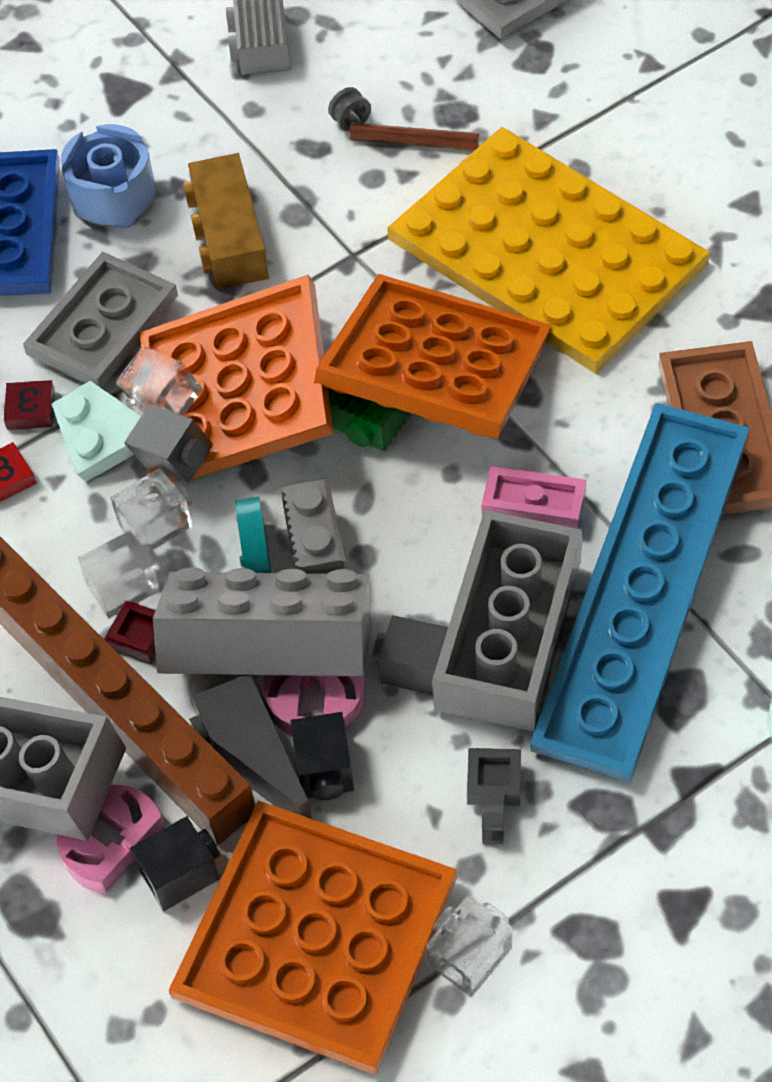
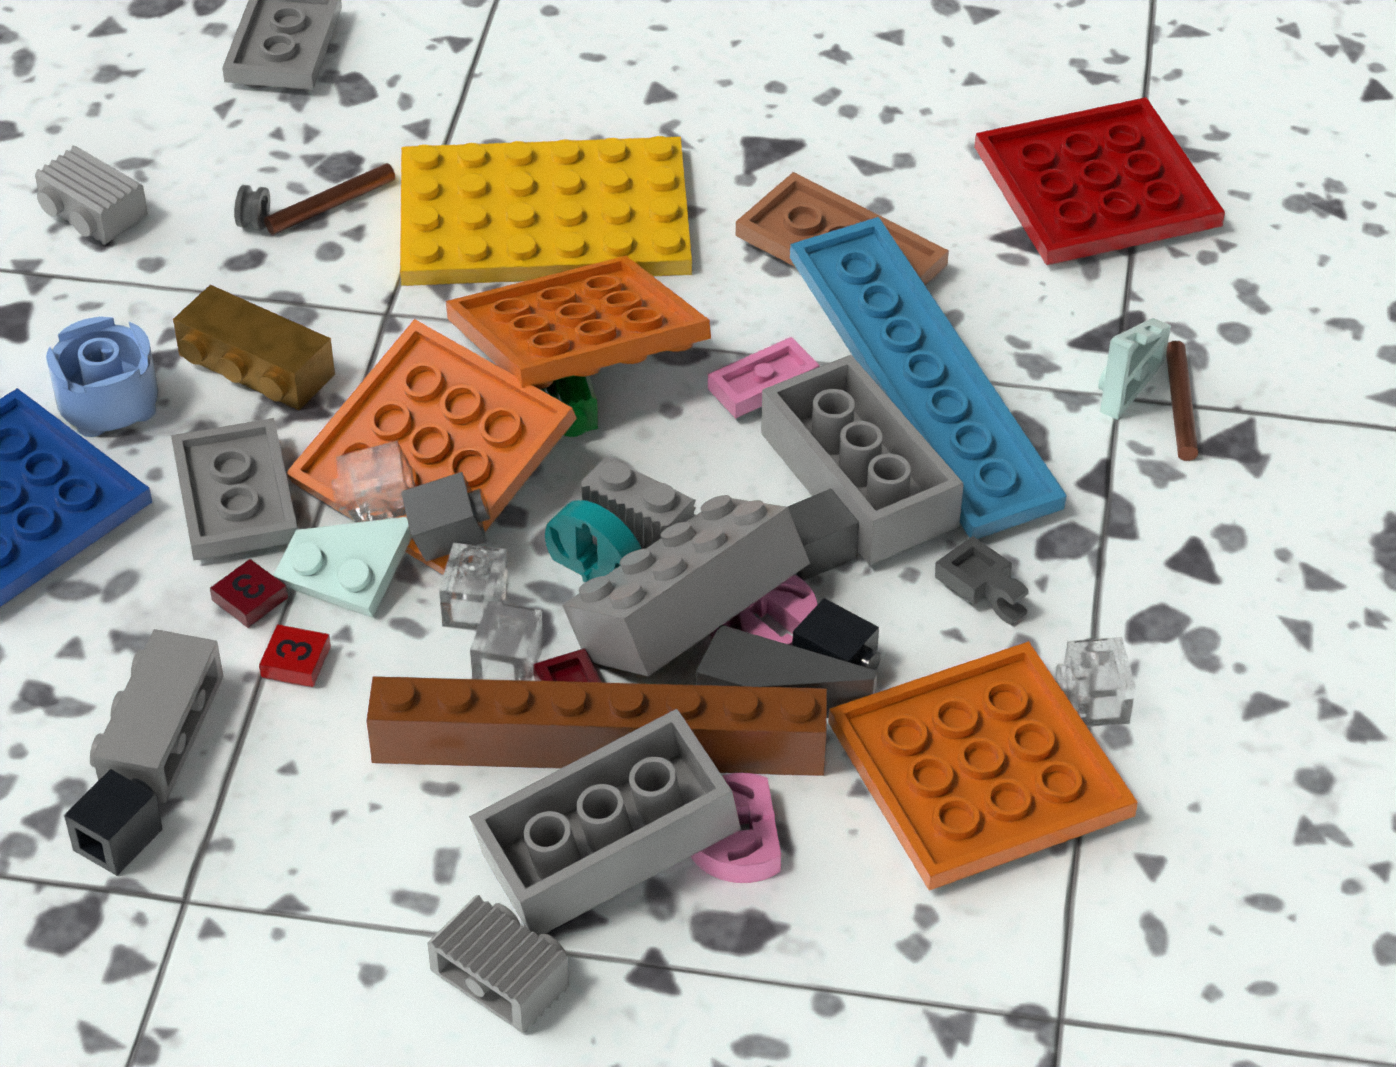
camera: 50 degrees left, 10 degrees down
(177, 862) = (820, 798): black brick -> none

